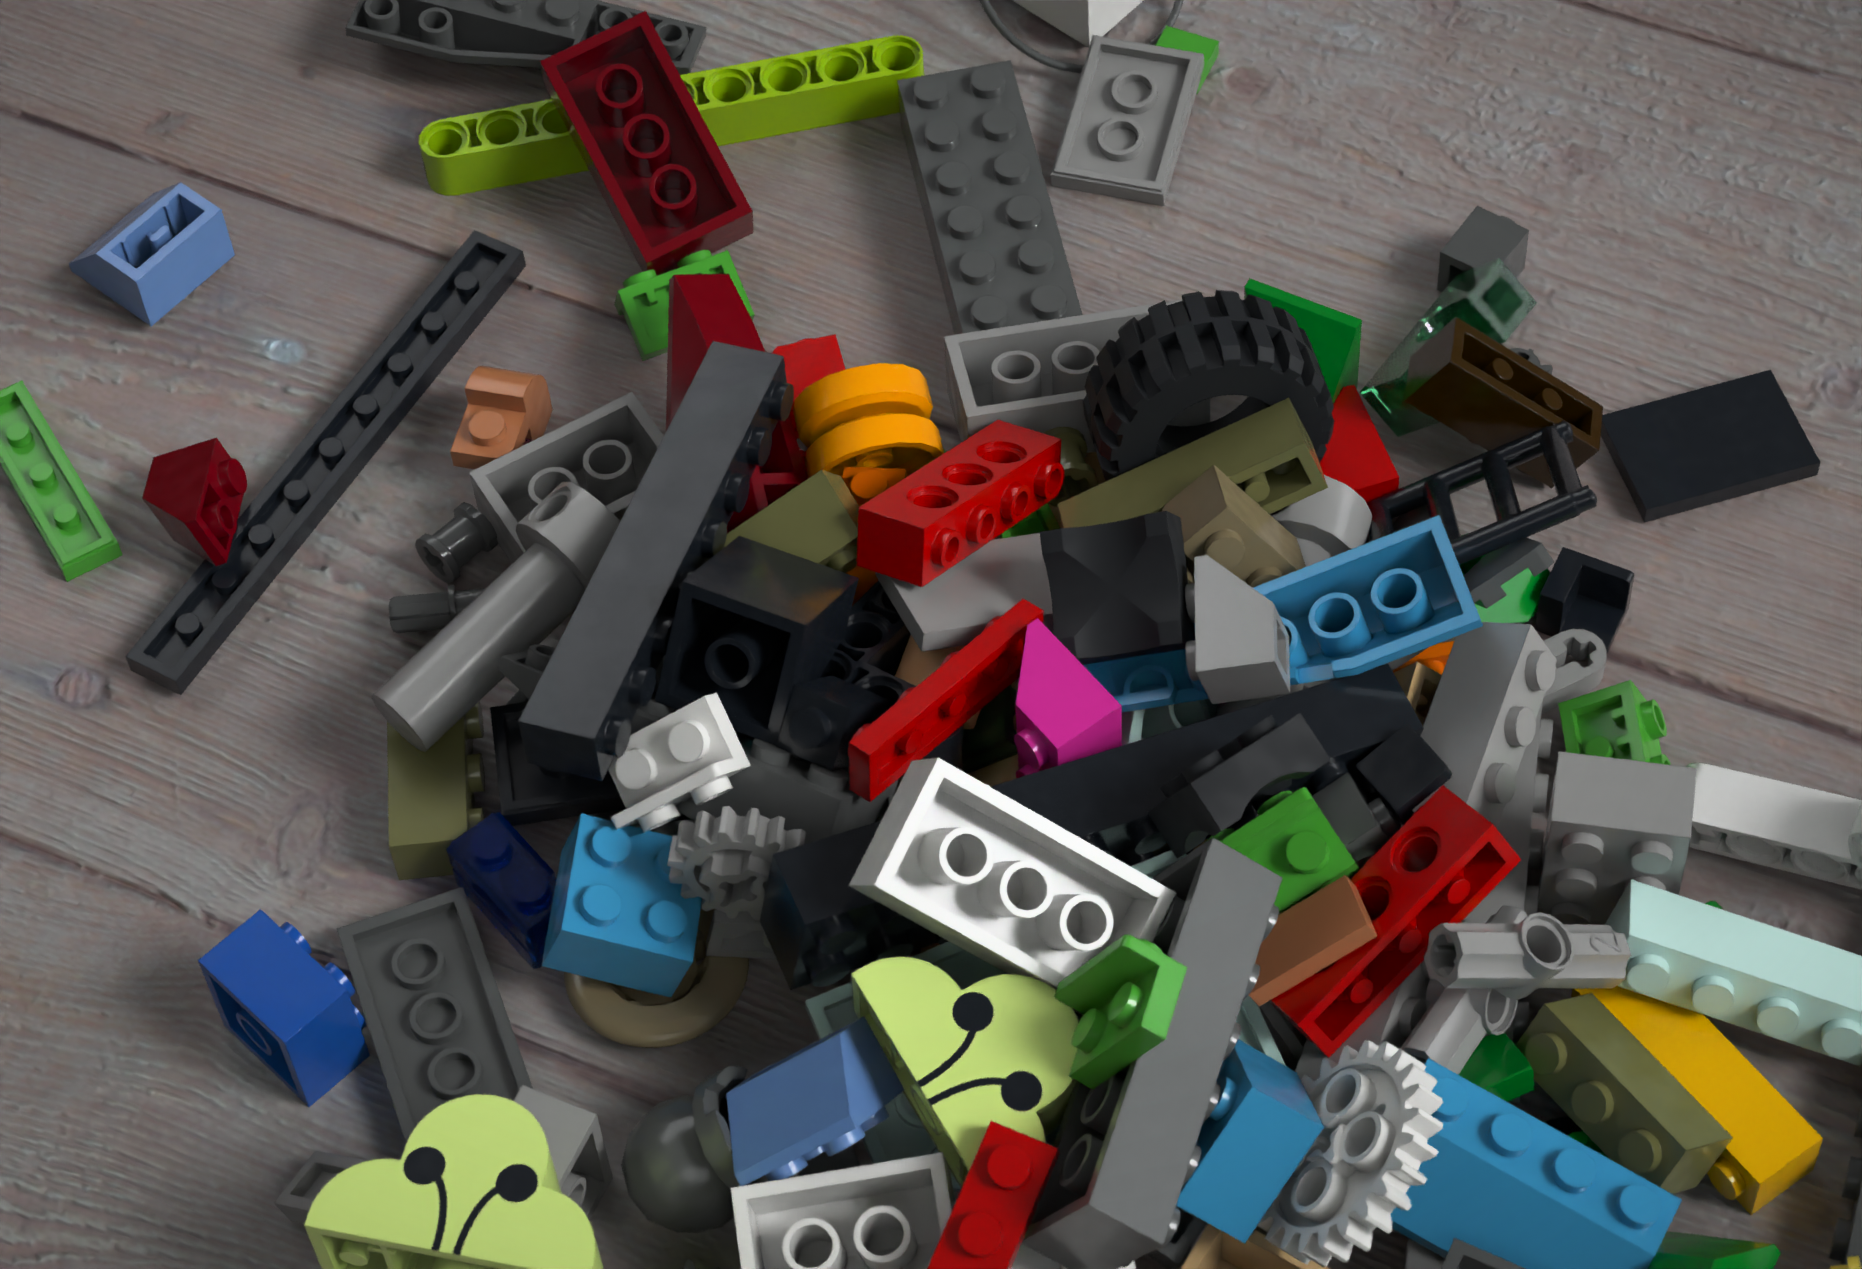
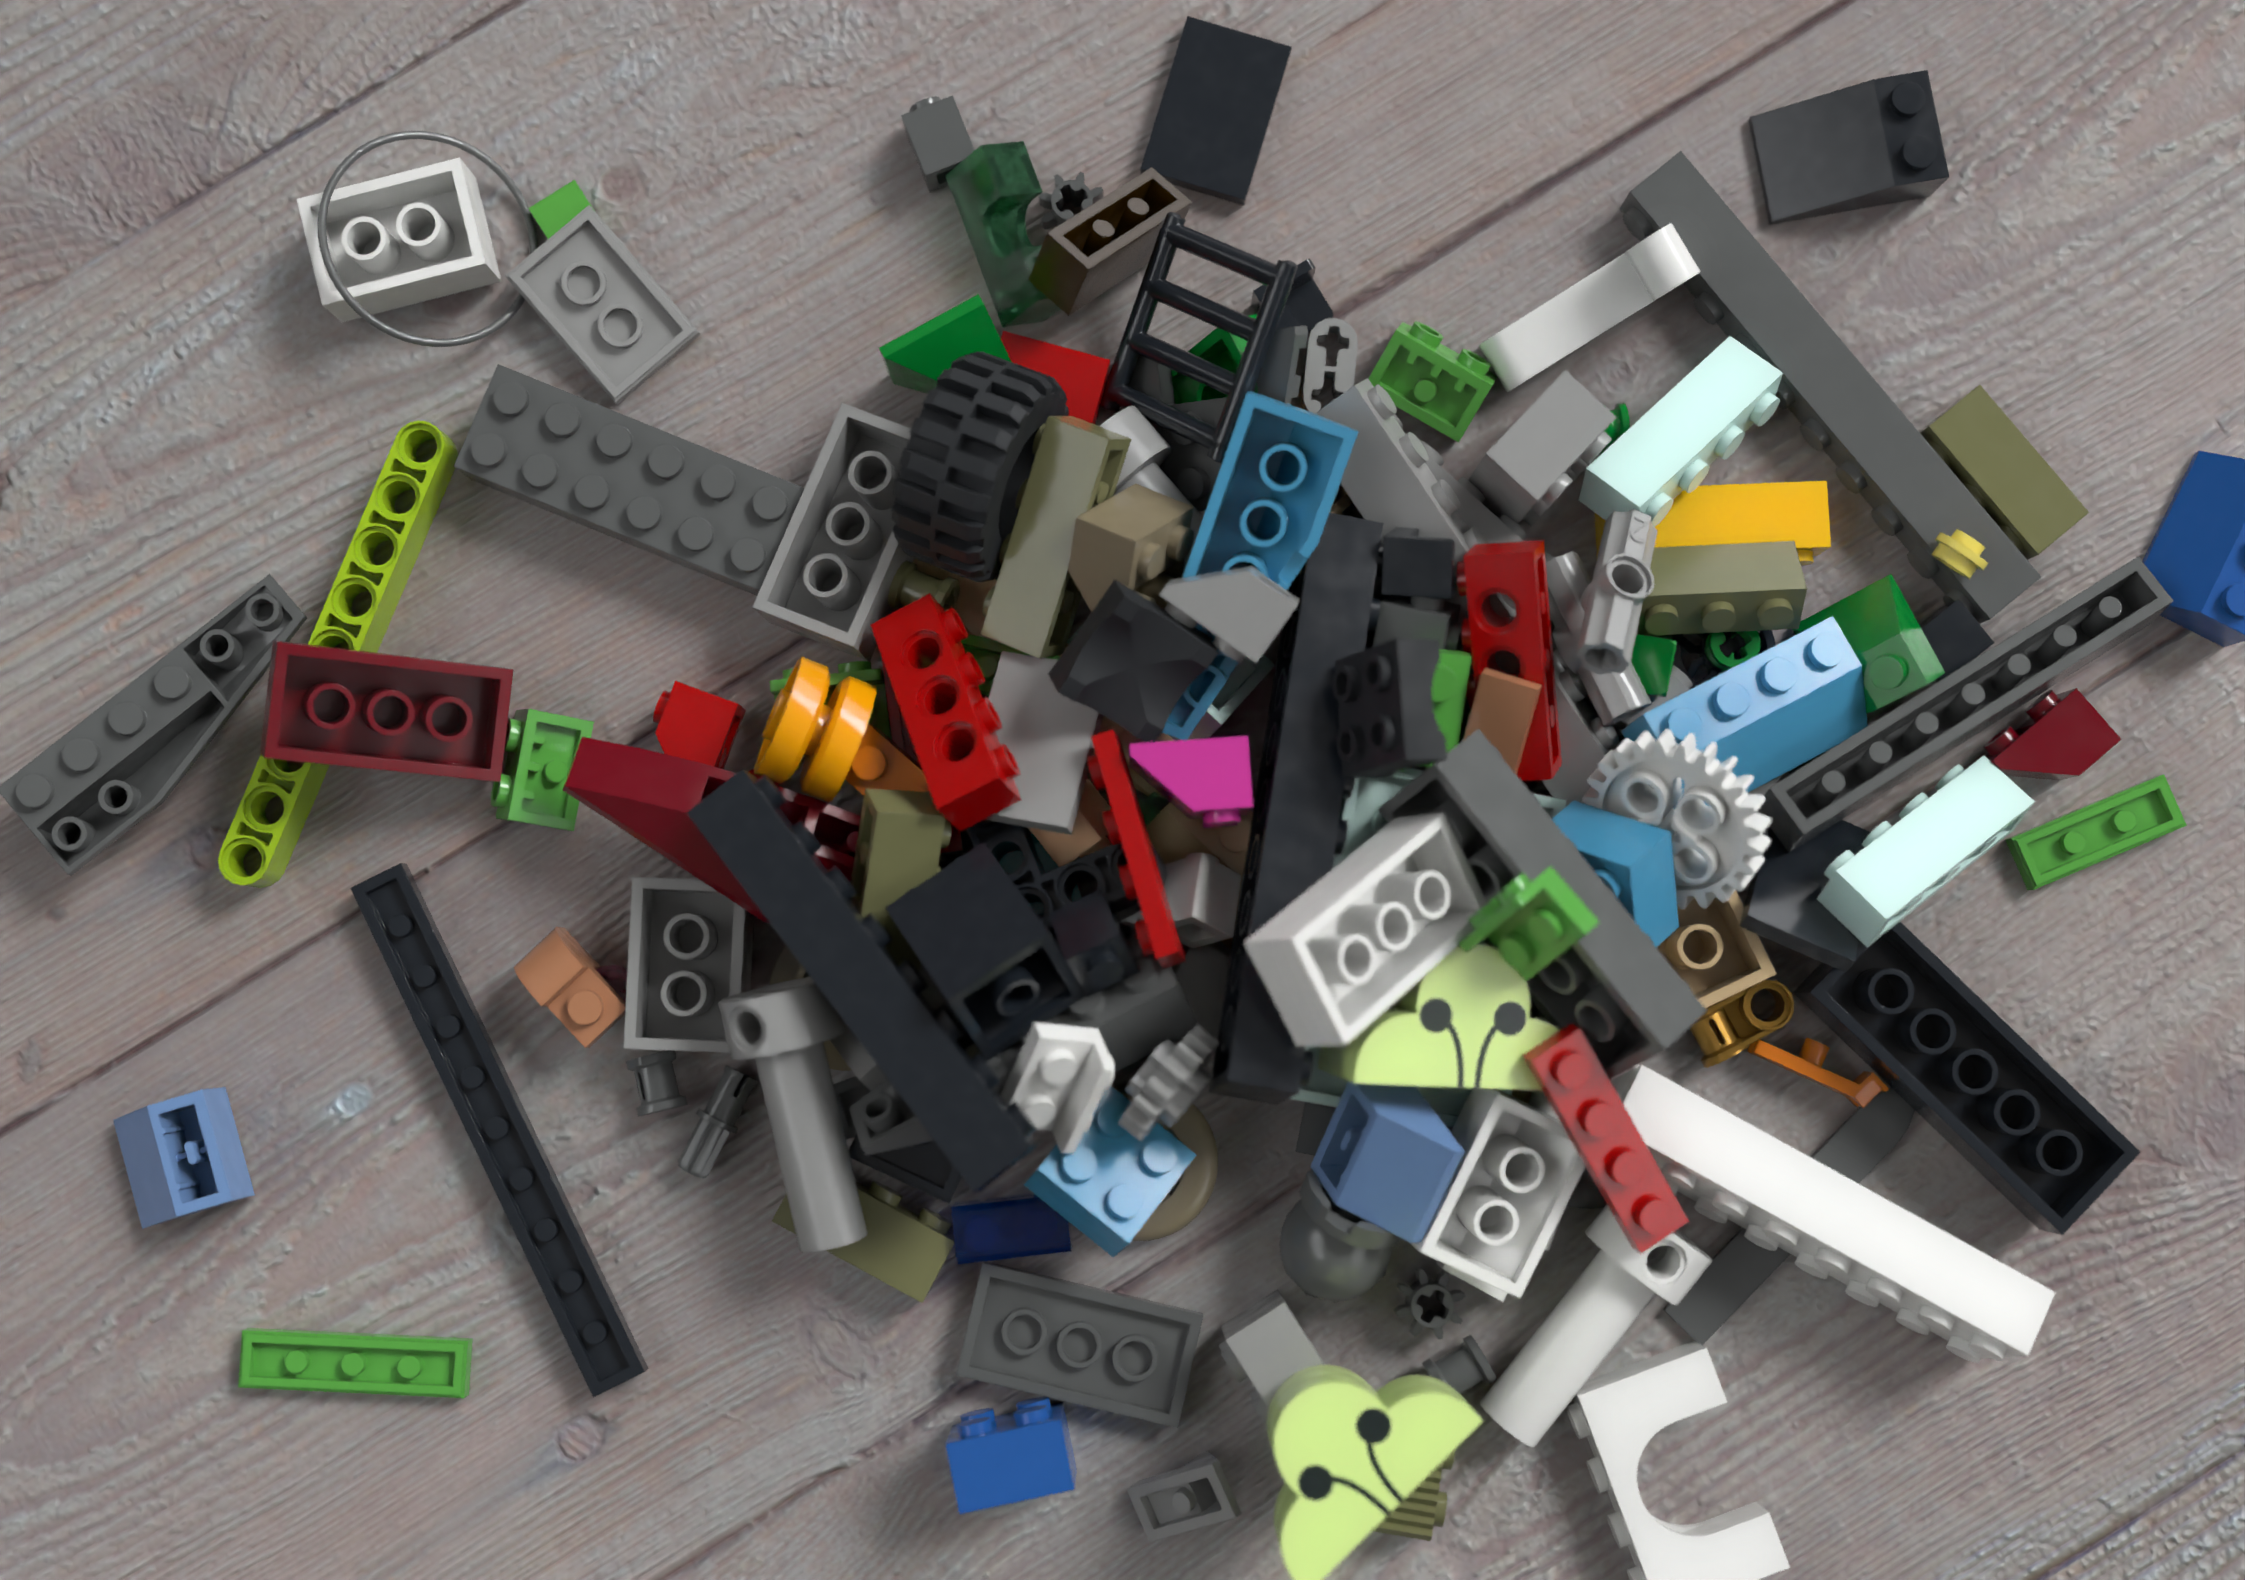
camera: 60 degrees left, 30 degrees up
(198, 497) = (484, 1265): dark red slope -> none

